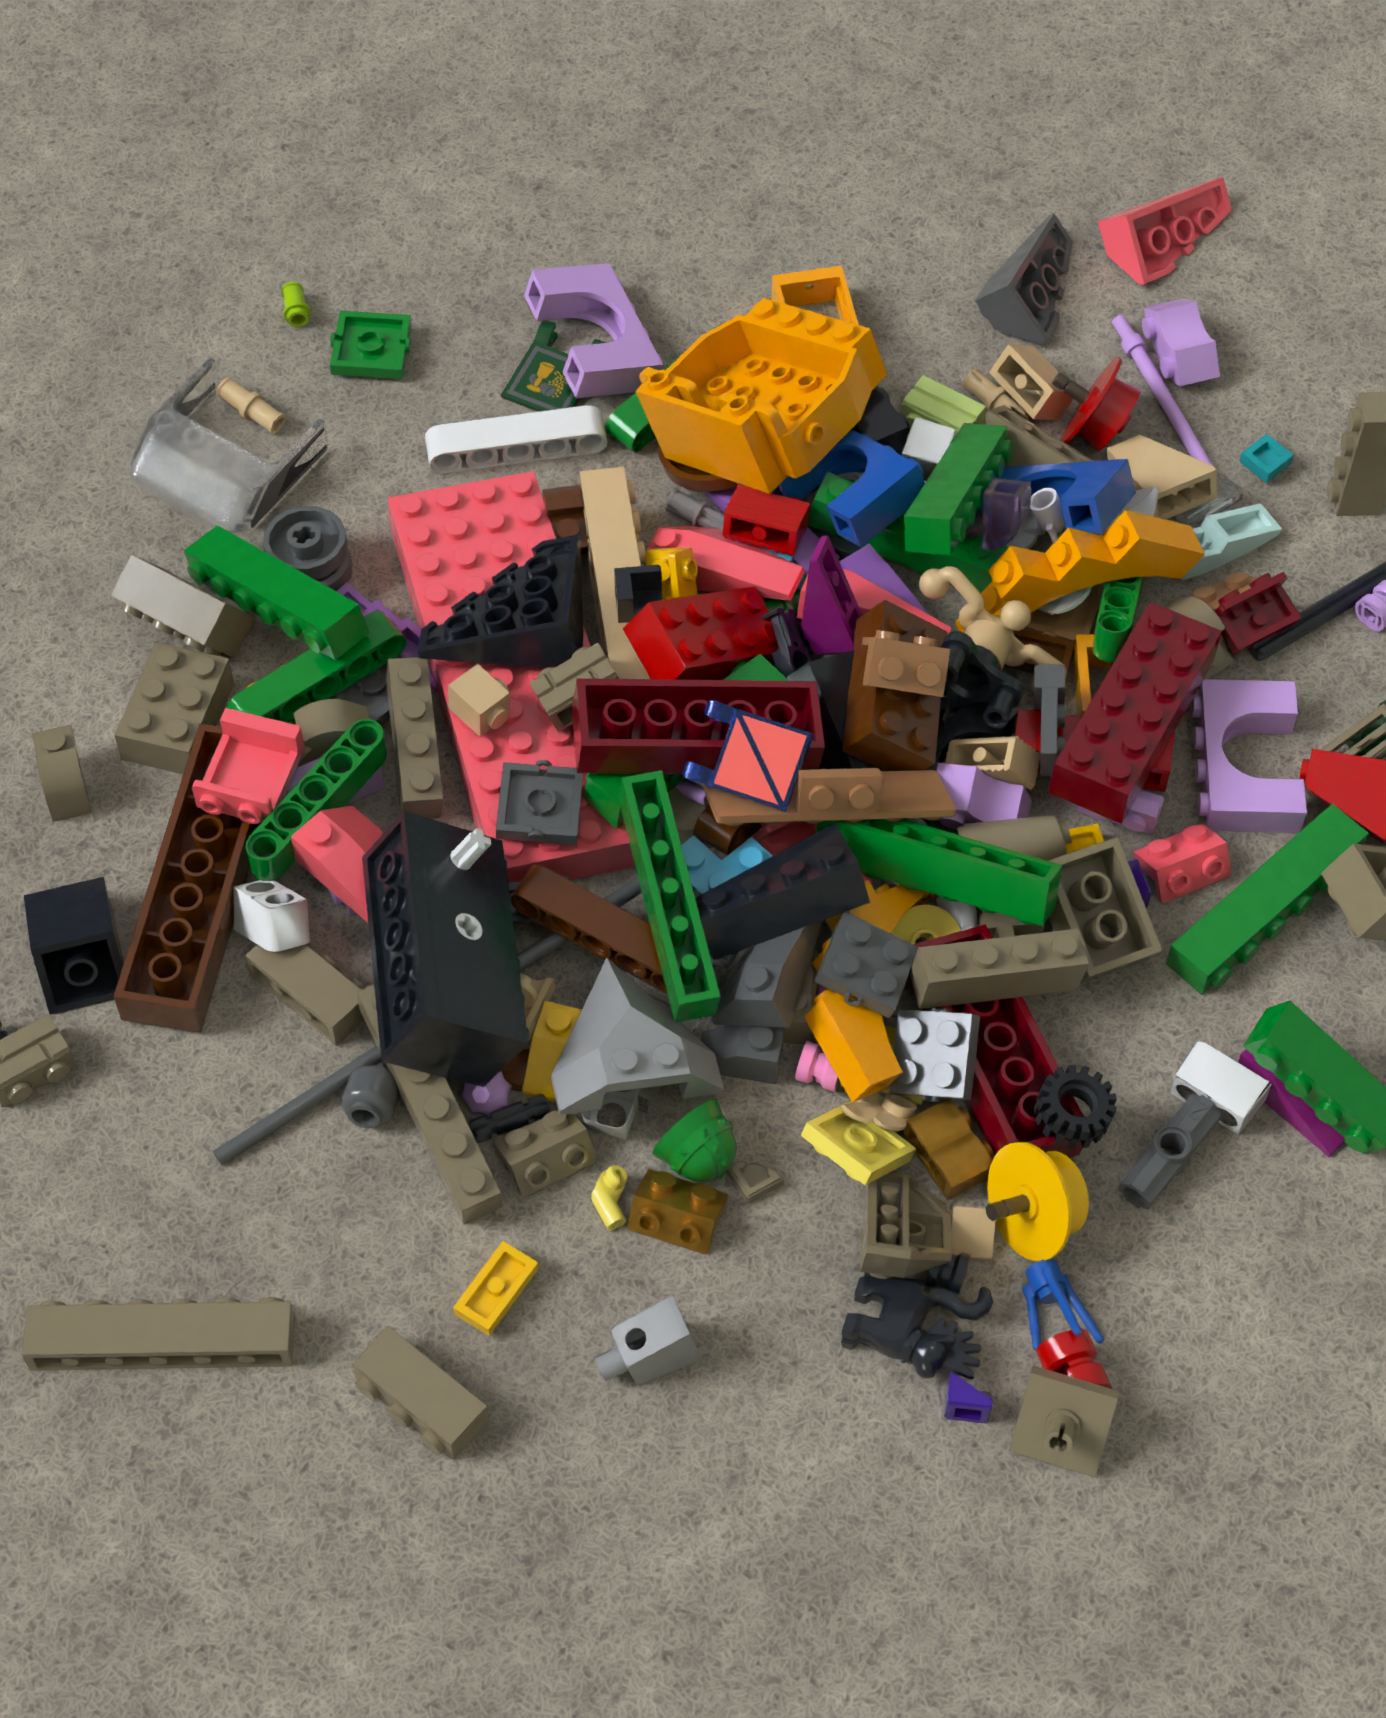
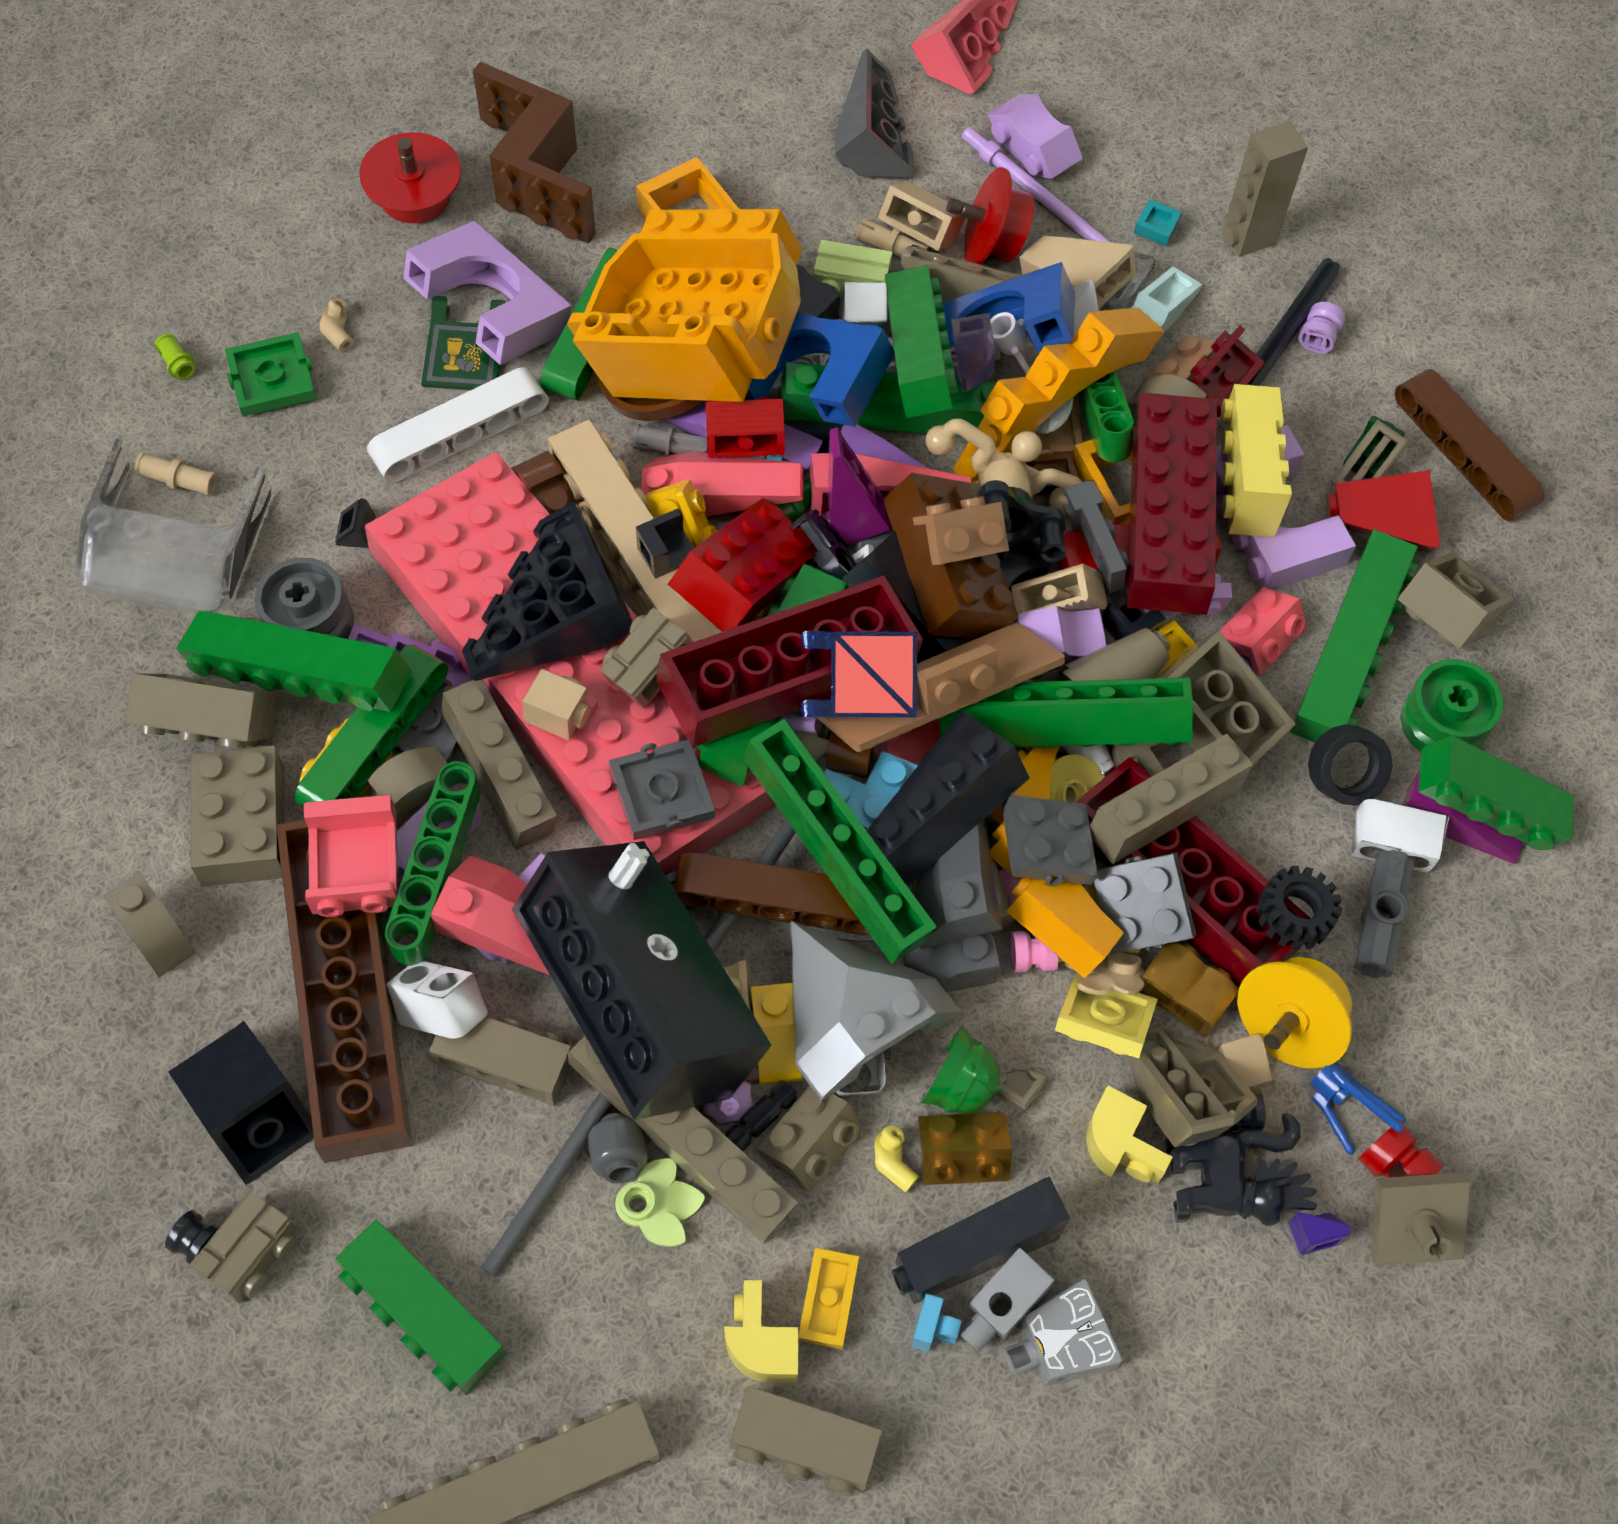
camera: 25 degrees left, 5 degrees up
(147, 1163) = (420, 1307): none -> green brick
(378, 502) = (352, 524): none -> black slope
(394, 1156) = (667, 1203): none -> yellowish green plate
(415, 1305) = (759, 1351): none -> light yellow brick
(446, 317) = (333, 324): none -> tan arm
(570, 207) = (410, 176): none -> red piece
(575, 1342) = (932, 1325): none -> medium azure tile
(627, 1287) = (982, 1241): none -> black slope
(687, 1400) = (1065, 1339): none -> light grey torso
(691, 218) = (534, 152): none -> reddish brown bracket
(815, 1253) = (1112, 1139): none -> light yellow brick
(1062, 809) = (1125, 621): none -> black panel
(1194, 975) = (1373, 780): none -> black tyre
(1236, 700) = (1254, 461): none -> light yellow wedge
(1332, 987) = (1454, 701): none -> green wheel

